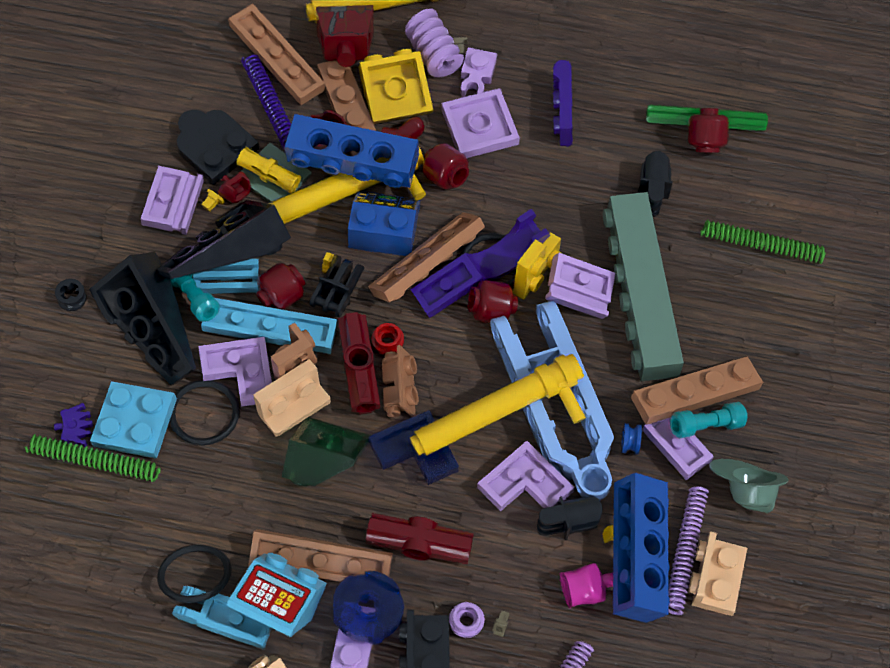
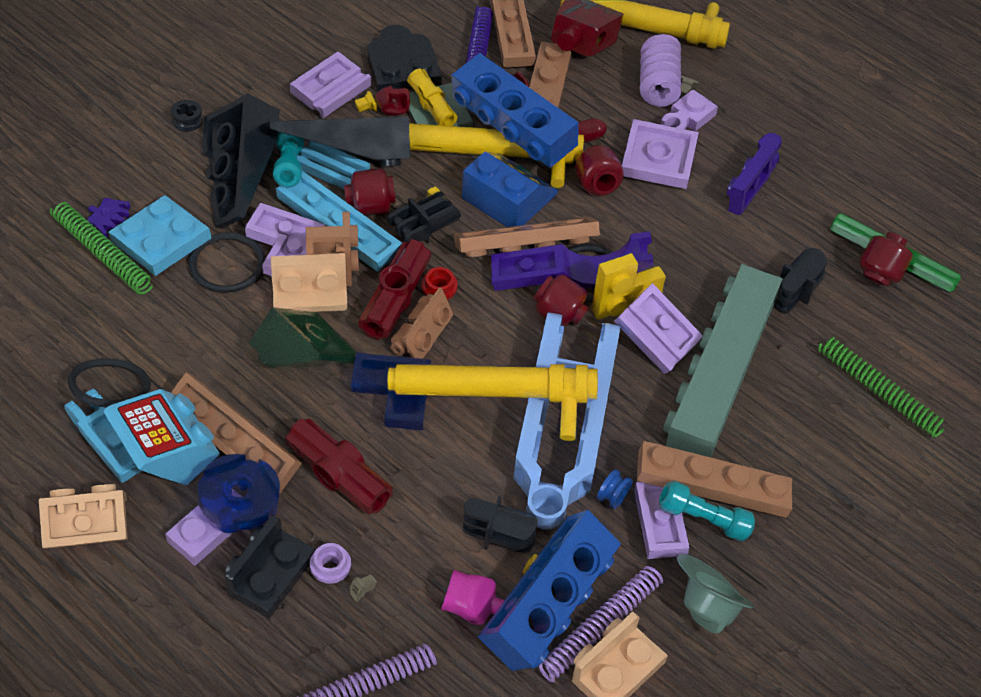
camera: 30 degrees right, 10 degrees down
(395, 86) = (599, 86): yellow plate -> none
(525, 471) = (483, 461): lavender plate -> none

